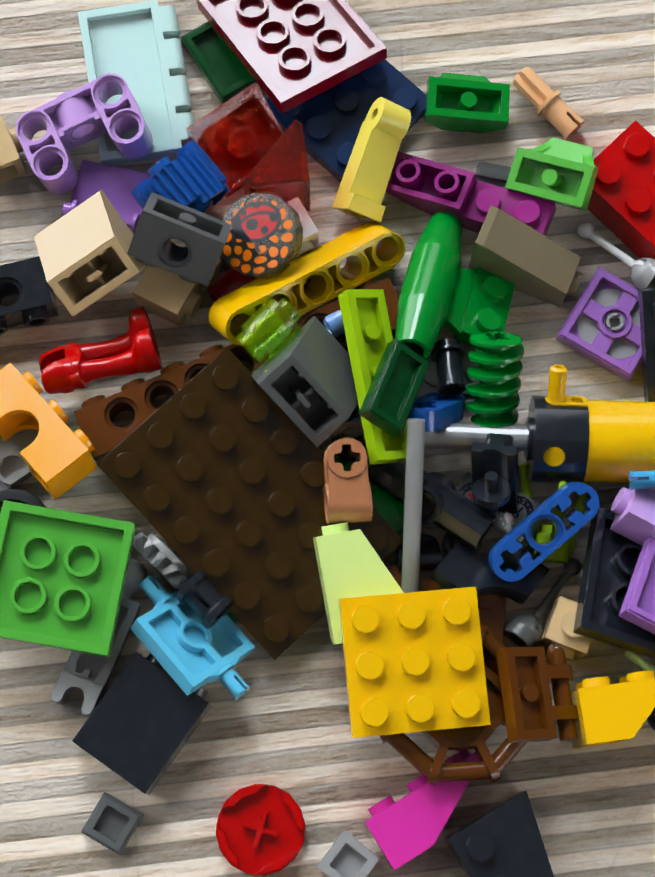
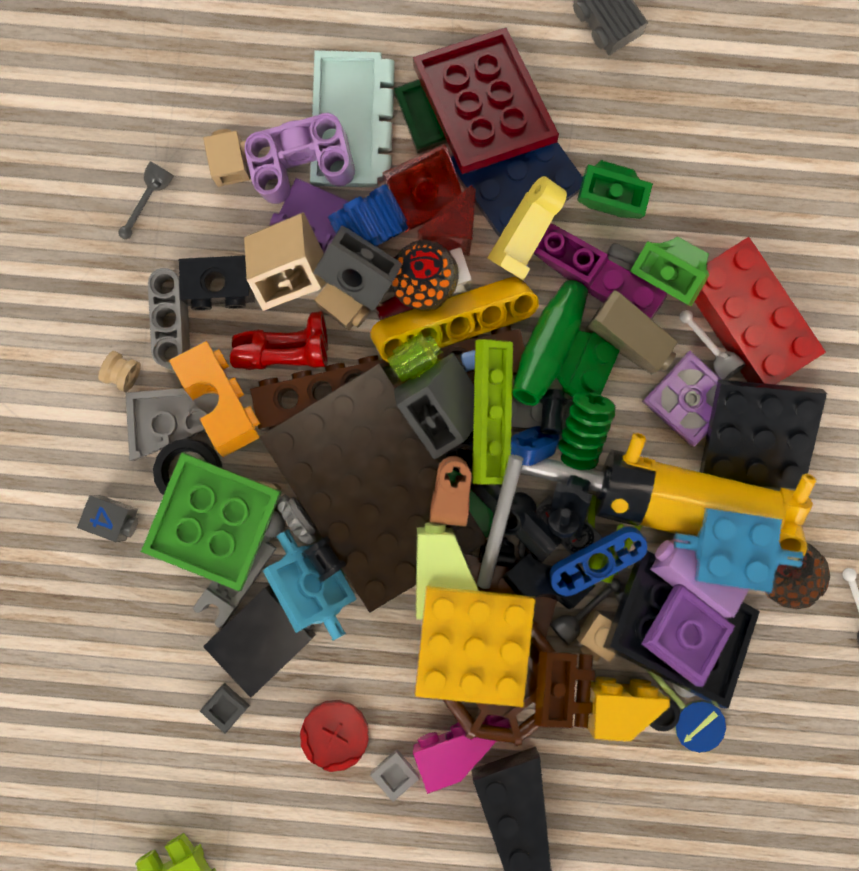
camera: 15 degrees right, 10 degrees up
(394, 388) = (504, 426): dark green tile -> none
(548, 102) = (680, 203): light nougat axle -> none

